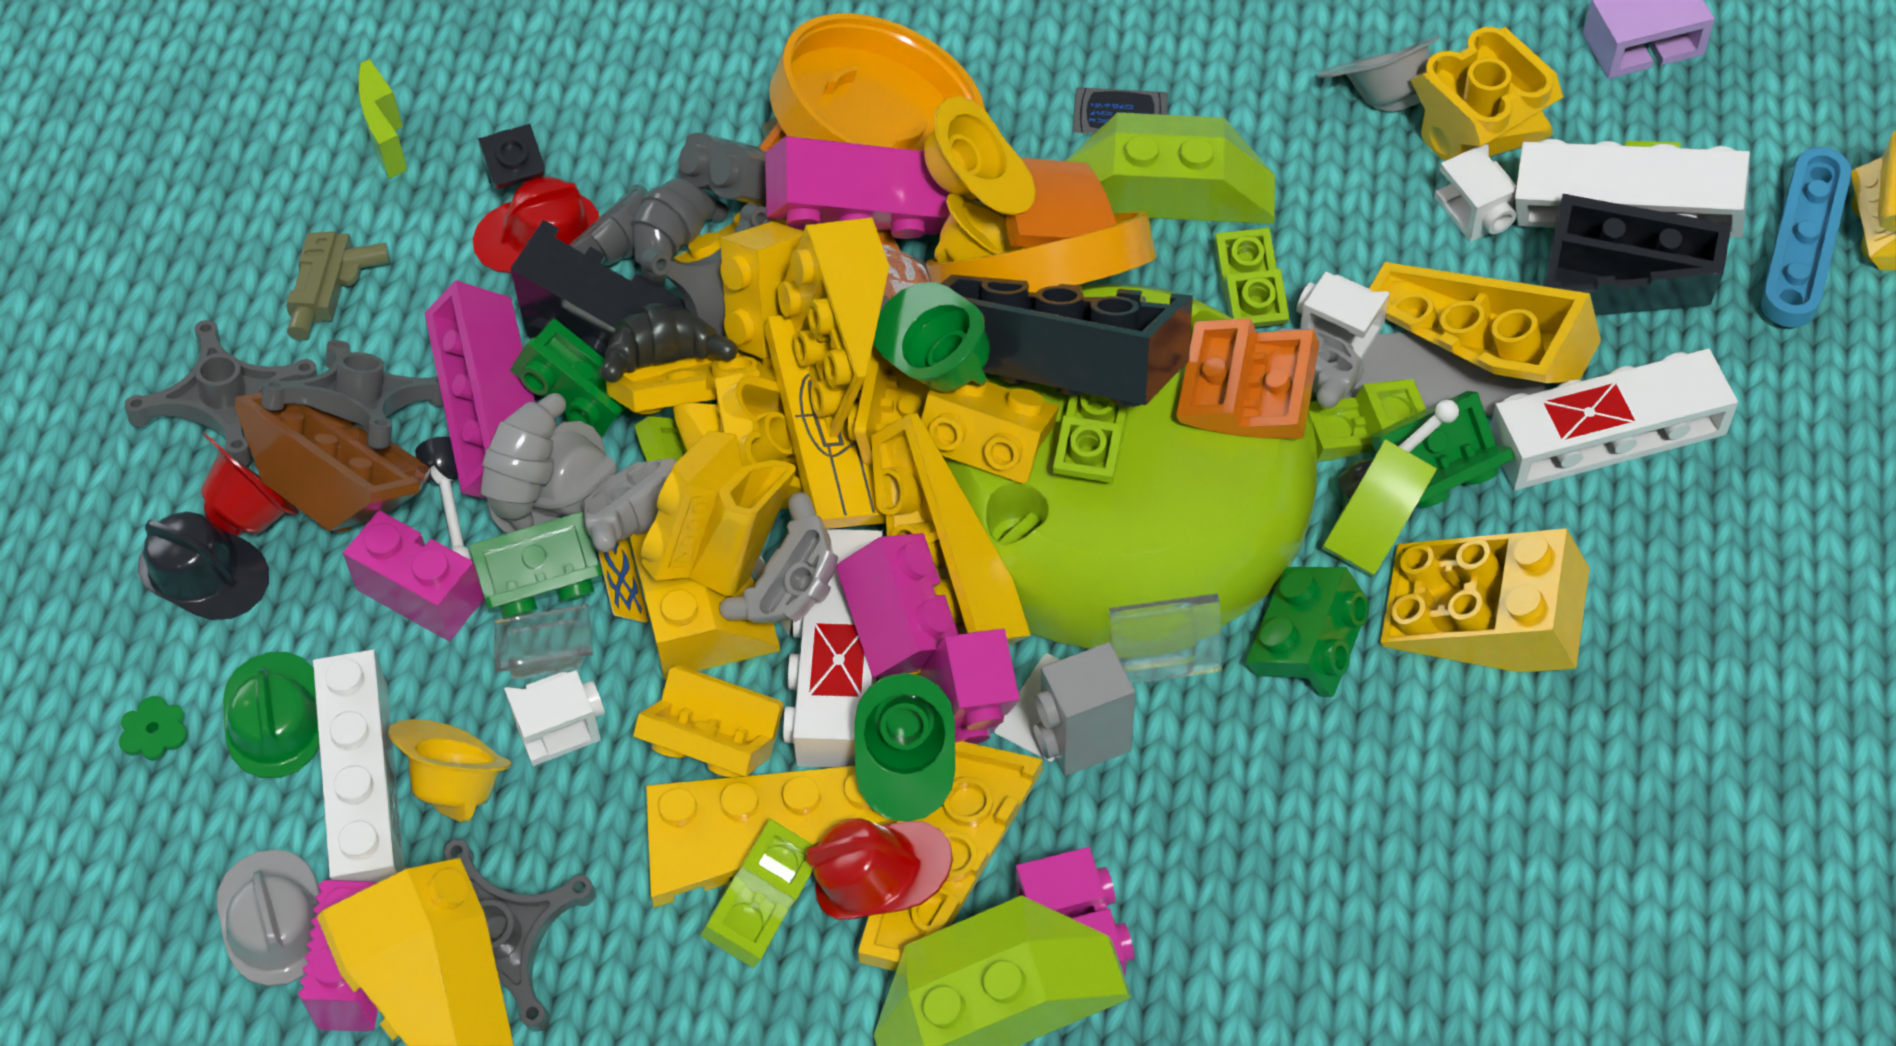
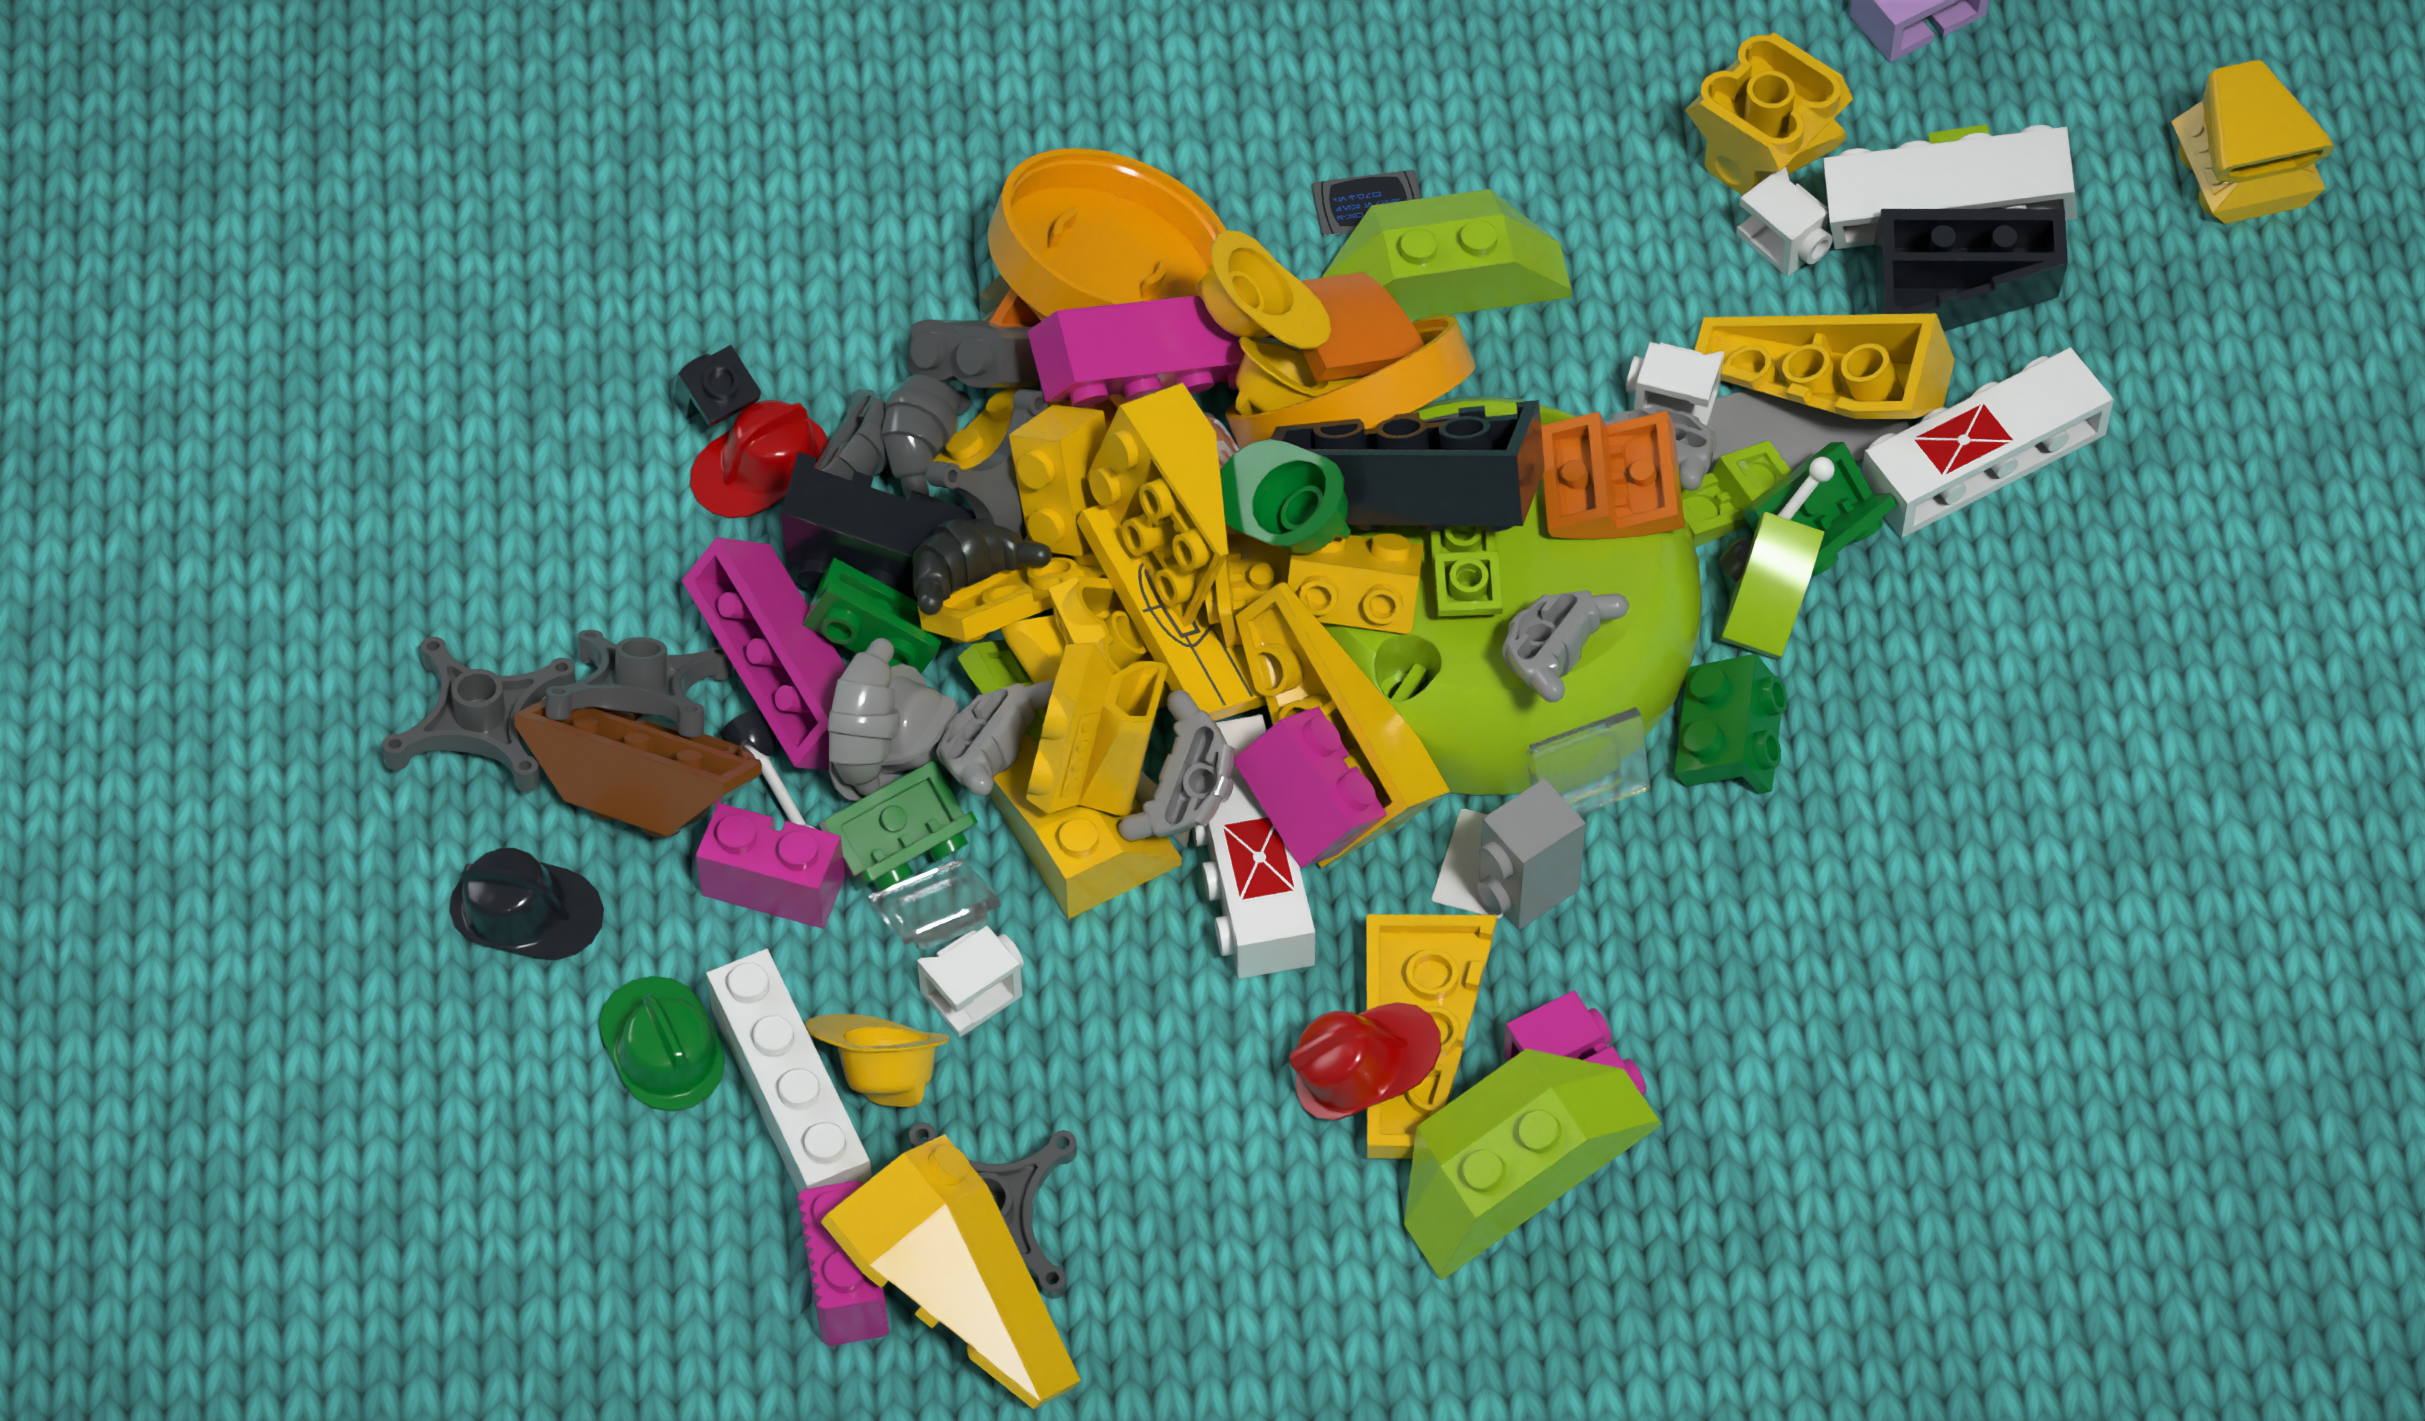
camera: 15 degrees left, 0 degrees up
(140, 728) = (538, 1071): green plant -> none
(238, 498) = (552, 814): red piece -> none
(267, 915) = (740, 1246): light grey piece -> none
(323, 268) = (539, 554): olive piece -> none
(381, 118) = (541, 370): lime slope -> none
(623, 582) = (991, 826): yellow sticker -> none
(708, 826) = (1193, 1051): yellow wing -> none
(711, 723) = (1141, 950): yellow bracket -> none
(760, 894) = (1247, 1111): lime slope -> none
(904, 746) = (1360, 929): green piece -> none
(977, 679) = (1406, 854): dark pink piece -> none
(1149, 510) = (1550, 635): none -> light grey piece
(1250, 277) = (1564, 363): lime slope -> none
(1386, 77) = (1653, 107): light grey piece -> none
(1490, 600) = (1907, 658): yellow slope -> none
(1806, 237) = (2141, 203): dark azure plate -> none

